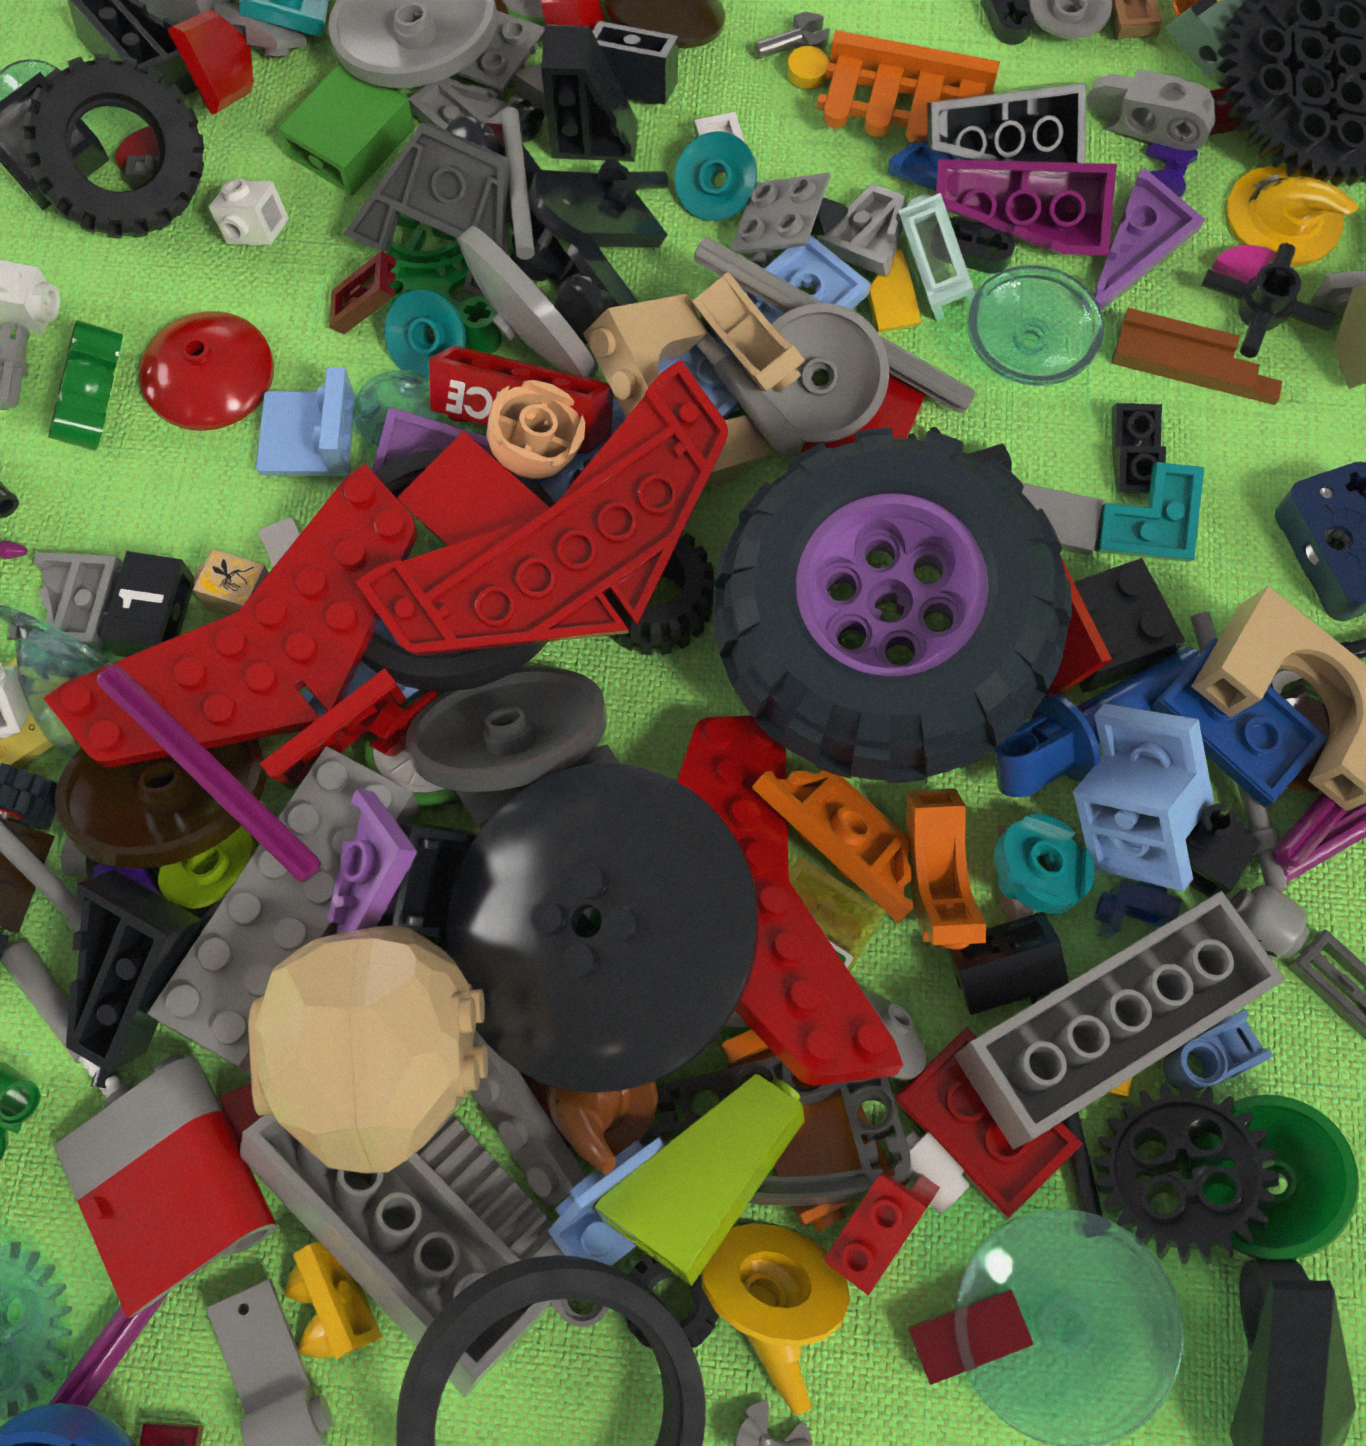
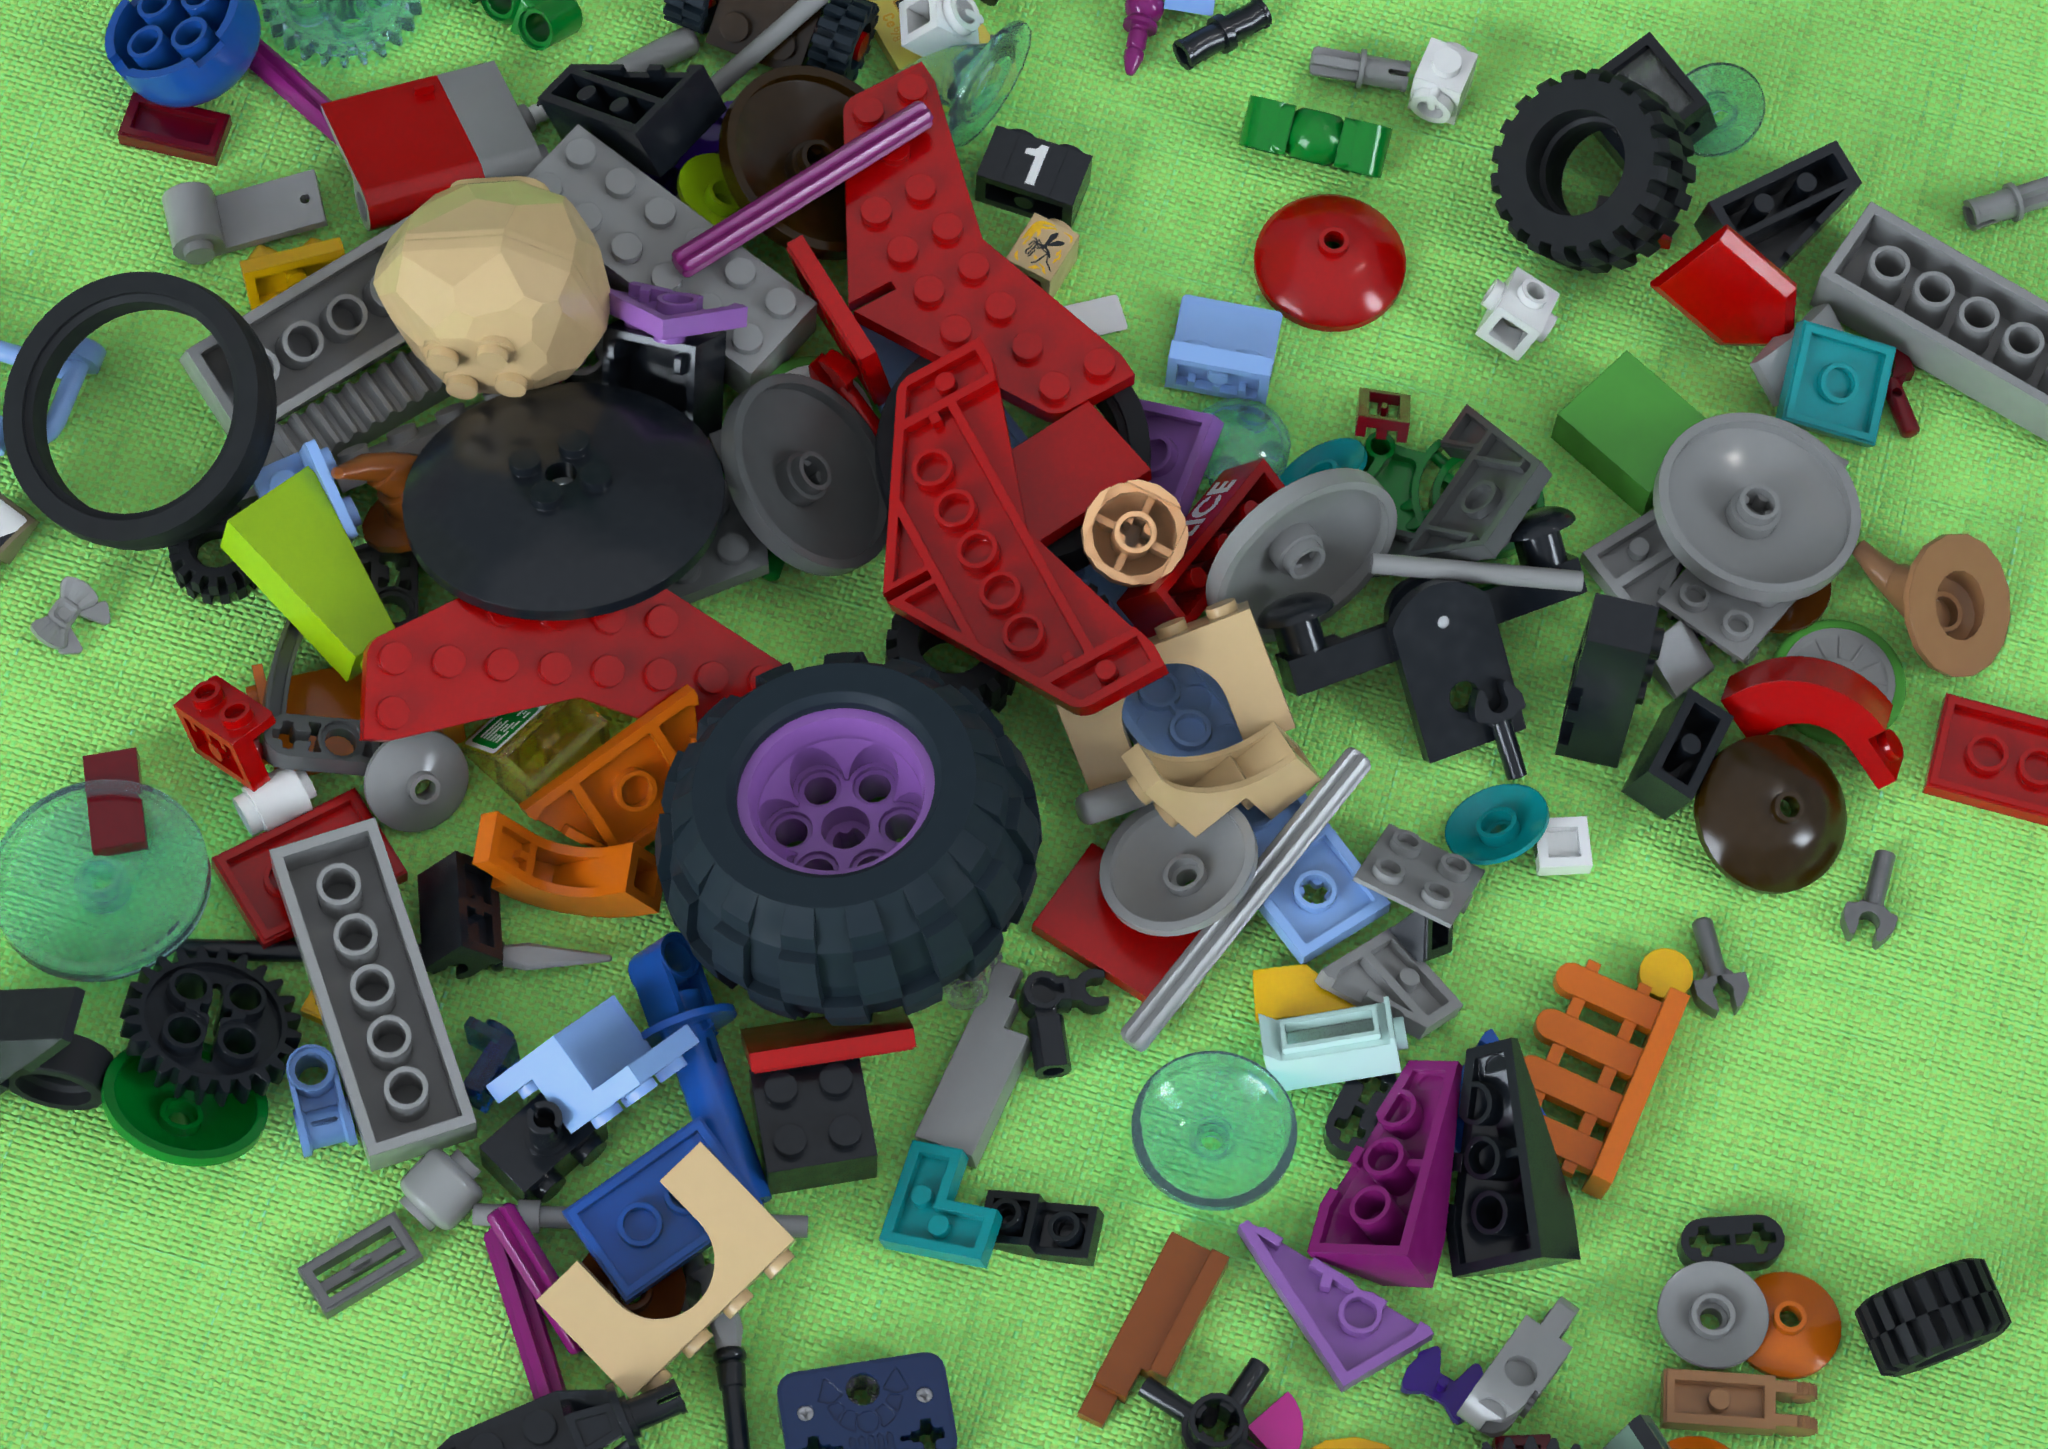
camera: 95 degrees right, 5 degrees down
(77, 592) = (1063, 112): light grey wing -> none
(779, 1296) = (197, 625): yellow piece -> none
(1027, 881) = (543, 946): teal plate -> none

